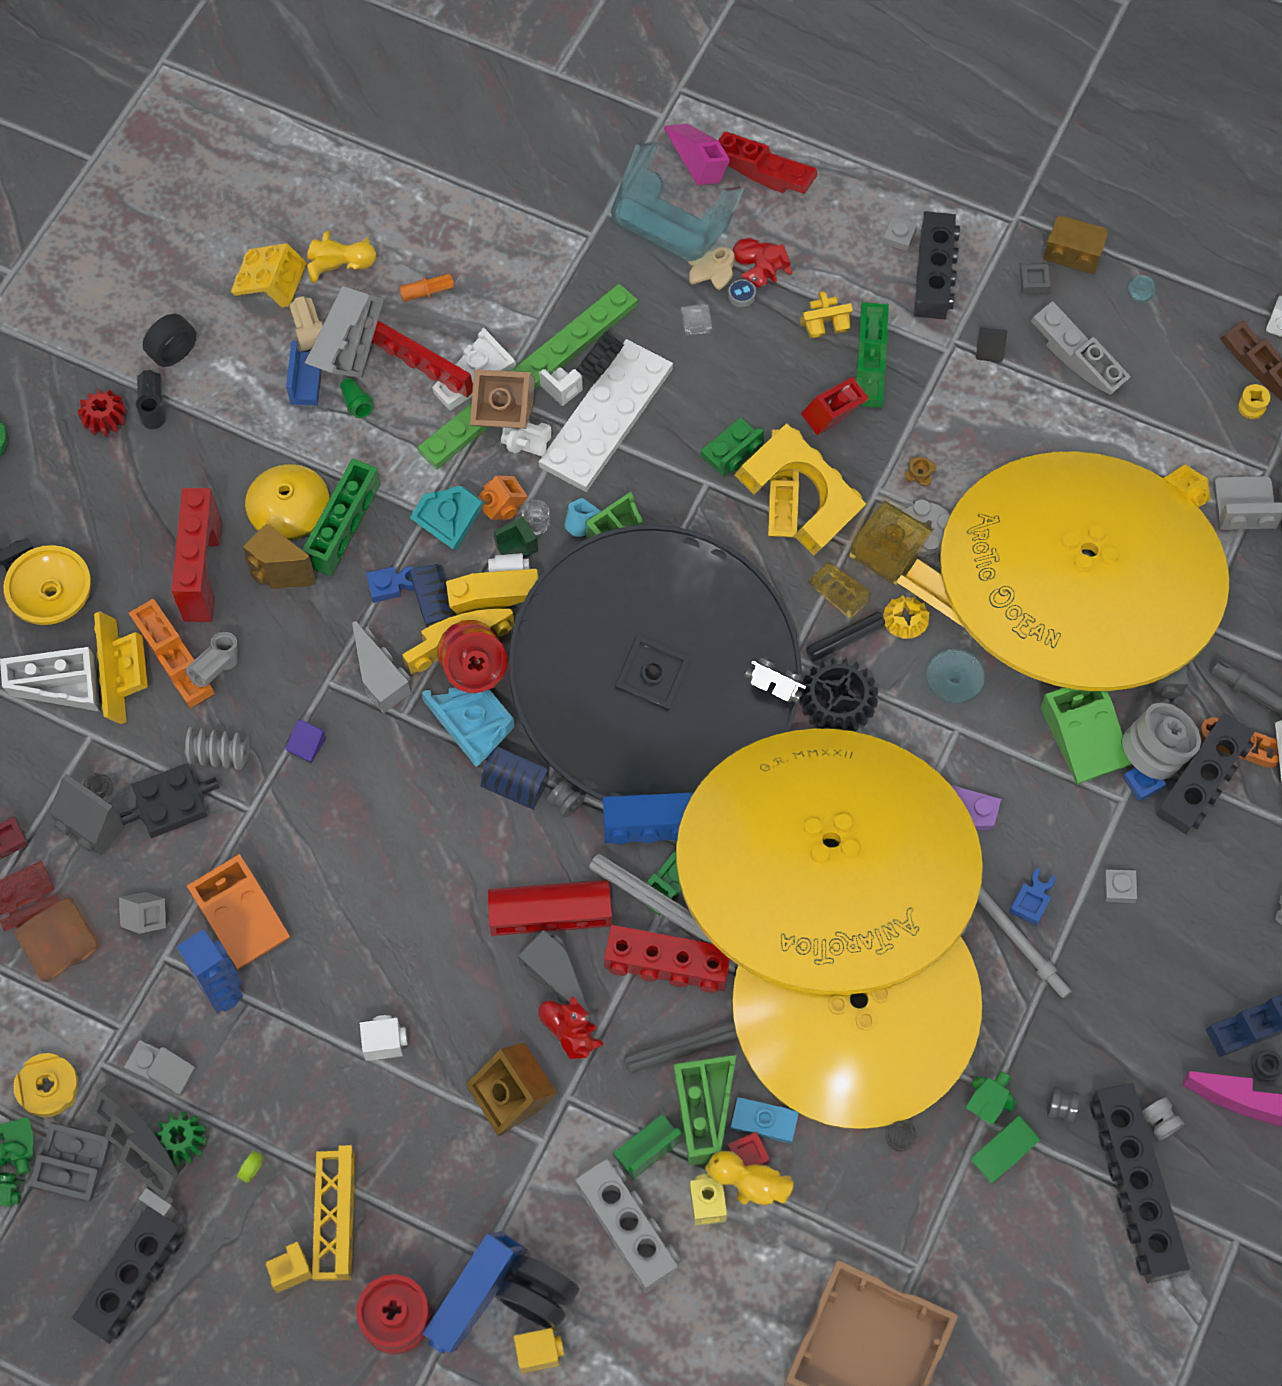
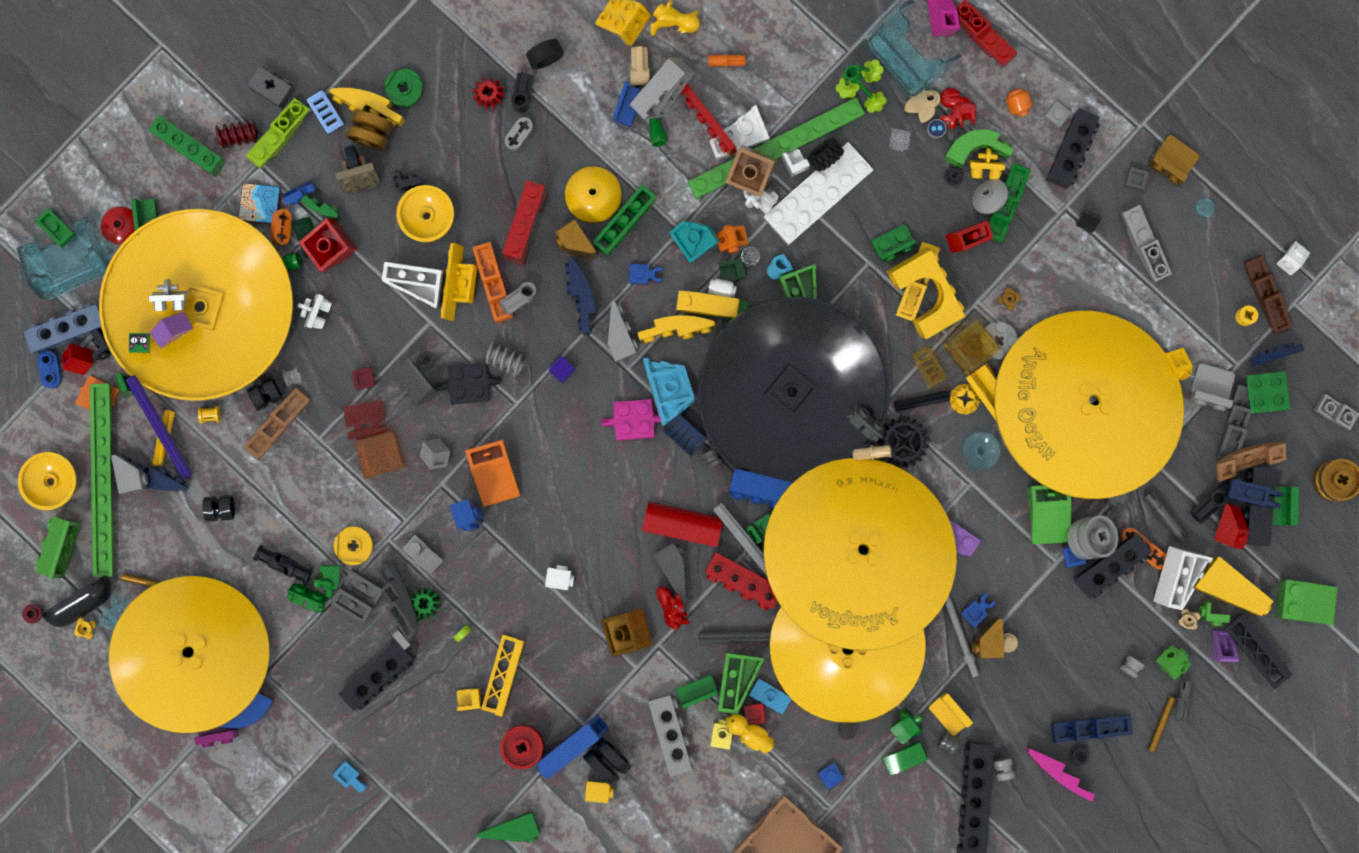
camera: 10 degrees right, 20 degrees up
(154, 450) = (522, 136): none -> light grey beam
(305, 629) = (580, 289): none -> dark blue slope
(431, 593) = (668, 294): dark blue brick -> none
(432, 781) = (633, 420): none -> dark pink plate
(456, 651) = (680, 349): red wheel -> none
(627, 249) = (852, 82): none -> lime plant
(783, 348) = (953, 171): none -> black plate
(798, 717) = (872, 452): none -> tan axle
(801, 289) = (976, 140): none -> bright green arch
(841, 229) = (1019, 102): none -> orange head
(845, 350) = (994, 200): none -> light grey dish
(899, 1214) = (830, 775): none -> blue plate
(1050, 1061) = (950, 714): none -> yellow panel
(1071, 932) = (990, 640): none -> pearl gold slope
(1096, 932) = (1010, 642): none -> tan plate
(1120, 886) = (1033, 617): light grey plate -> none

